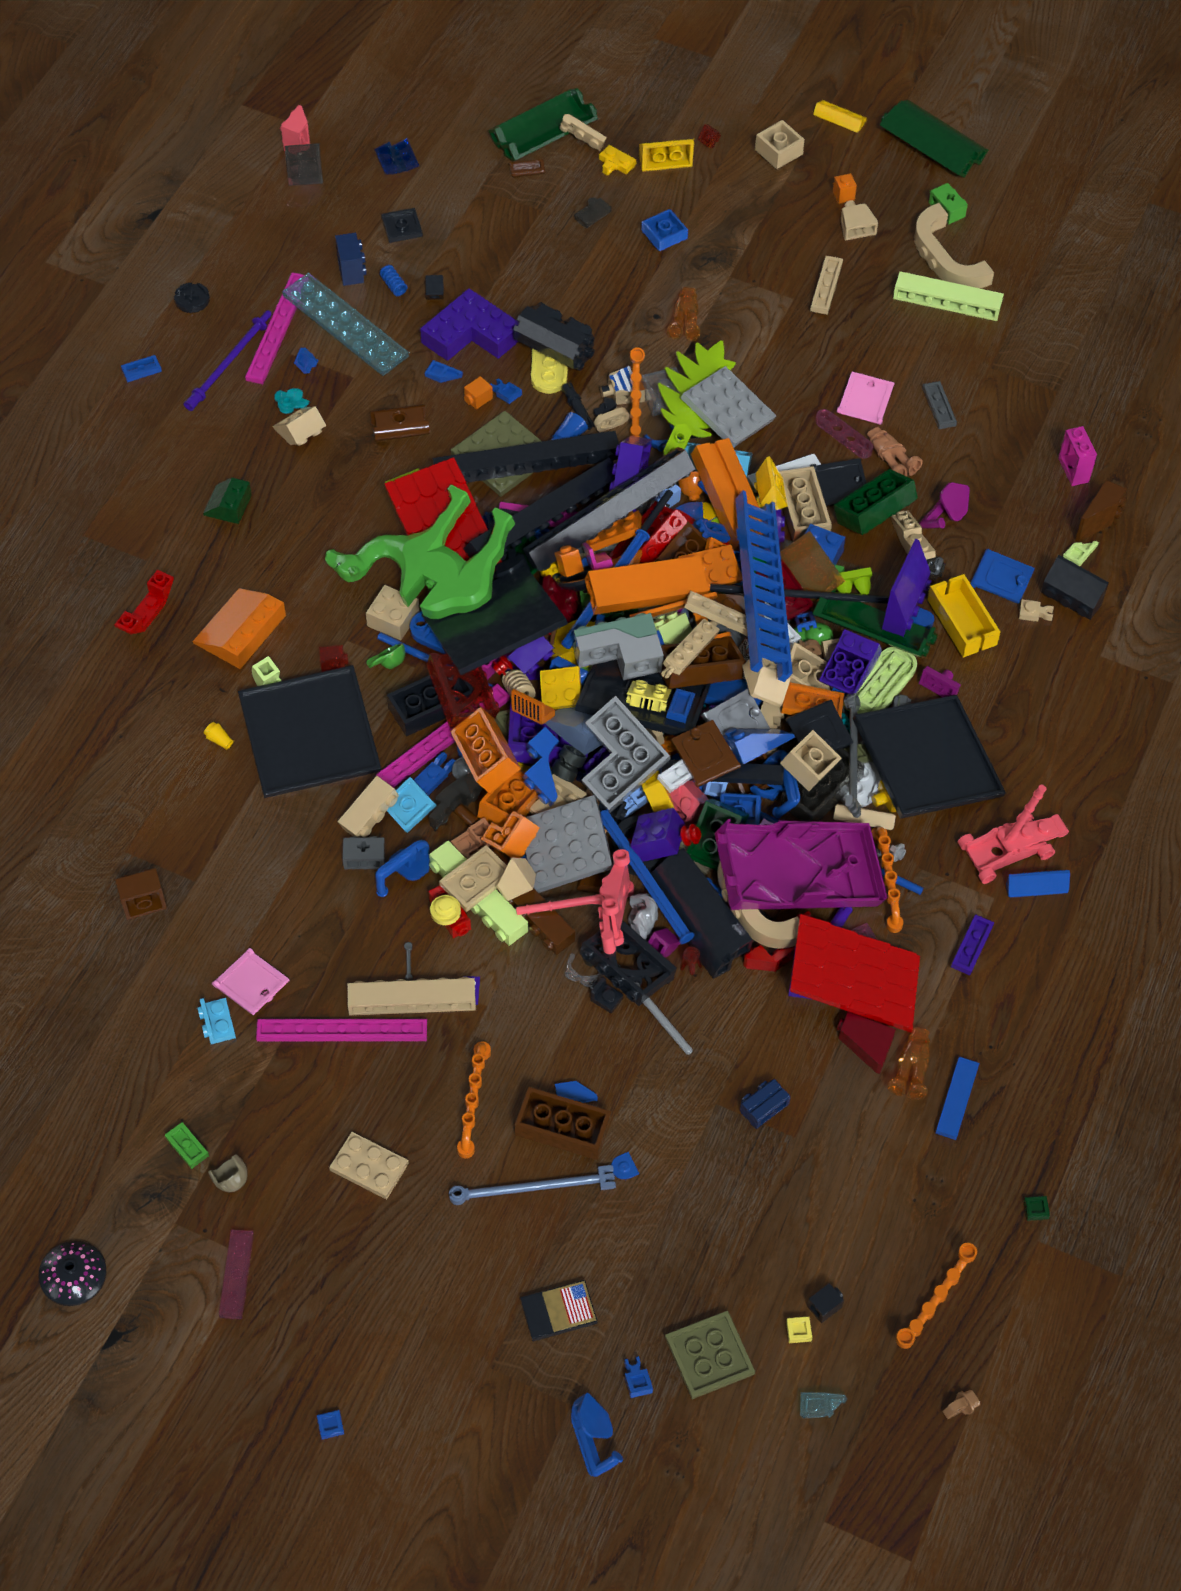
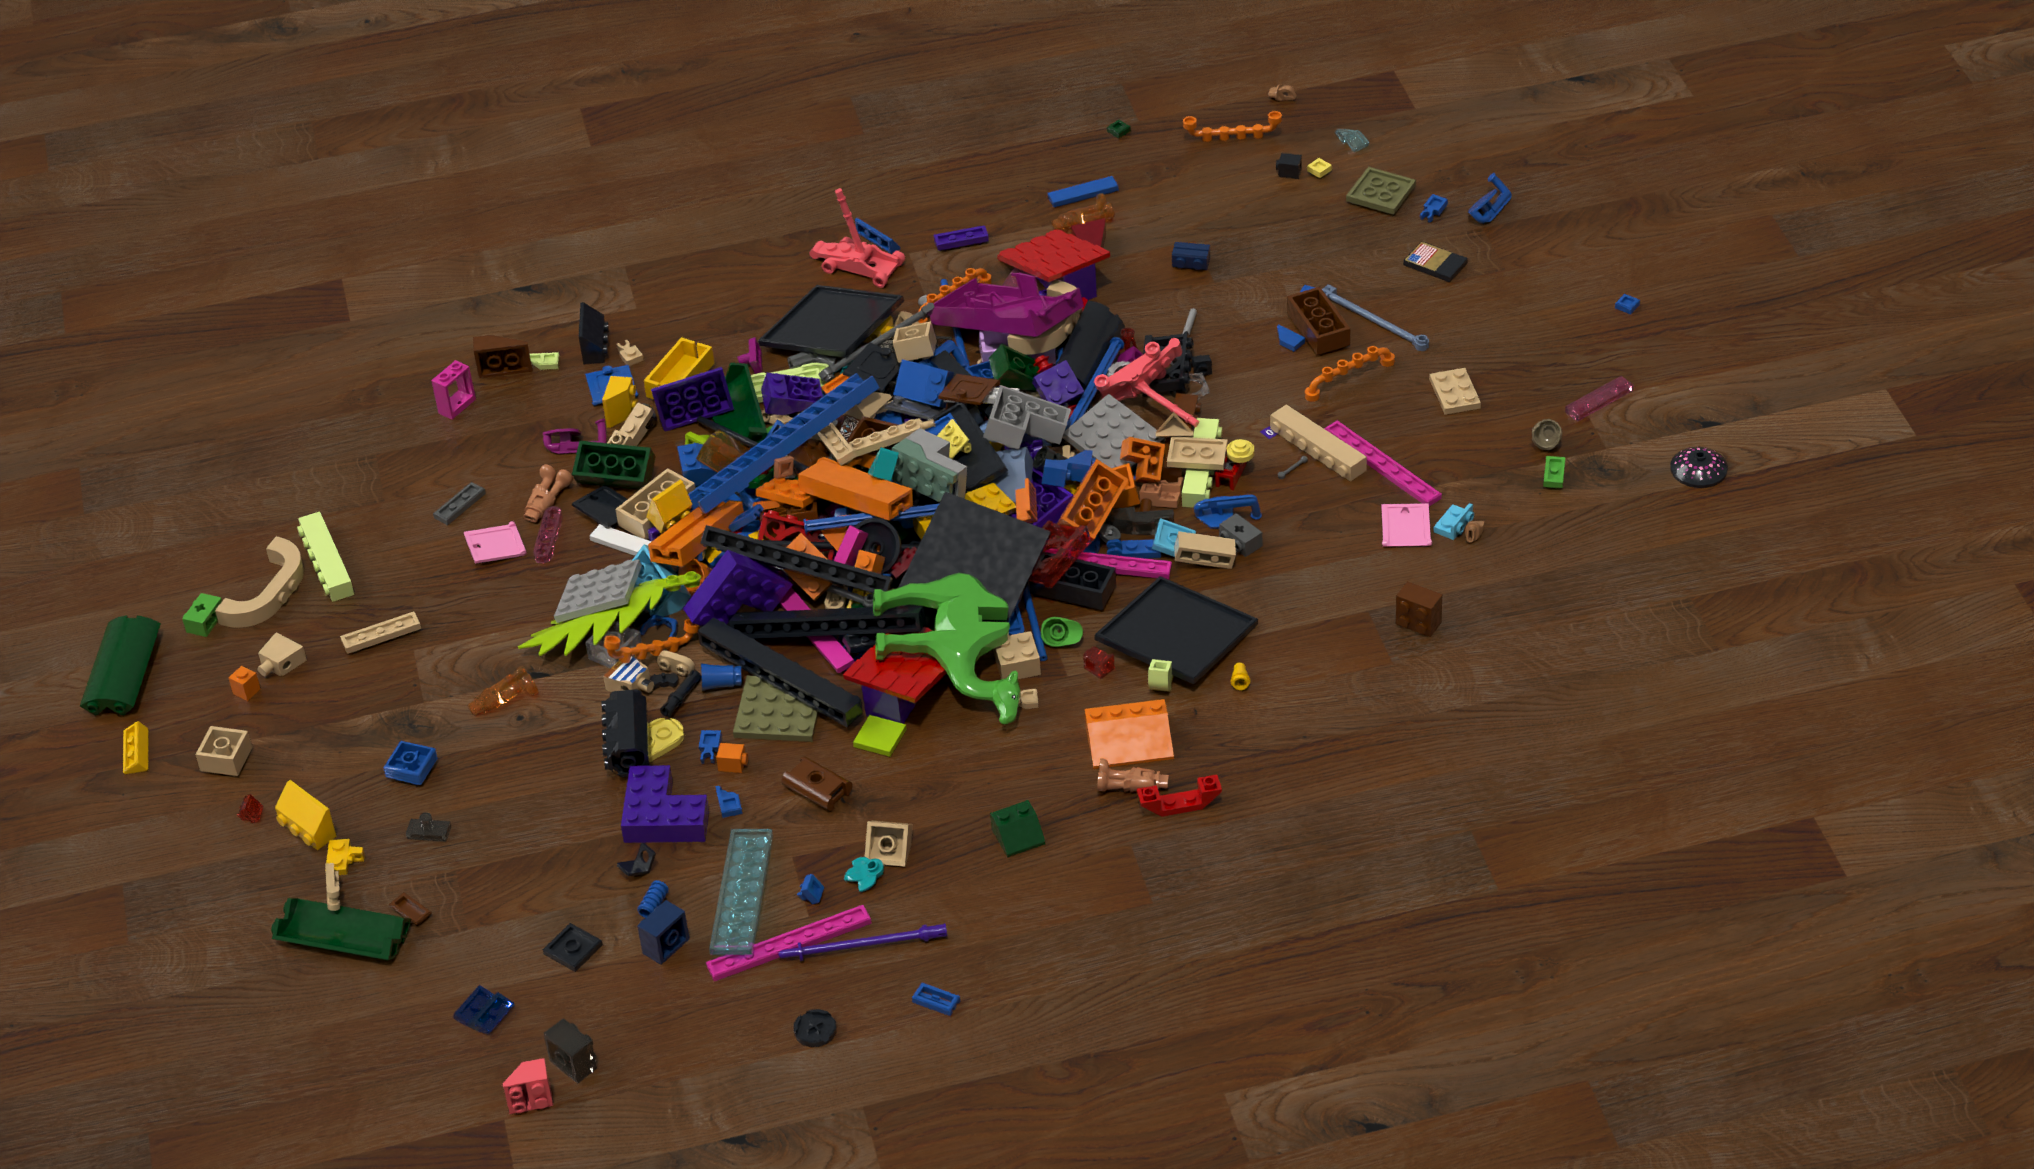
camera: 125 degrees left, 15 degrees down
(188, 1020) = (1474, 530): none -> medium nougat piece
(191, 599) = (1129, 779): none -> nougat piece
(348, 598) = (1029, 699): none -> tan tile
(644, 603) = (884, 464): none -> teal slope
(736, 573) = (783, 467): none -> nougat tile
(962, 552) = (618, 400): none -> yellow slope

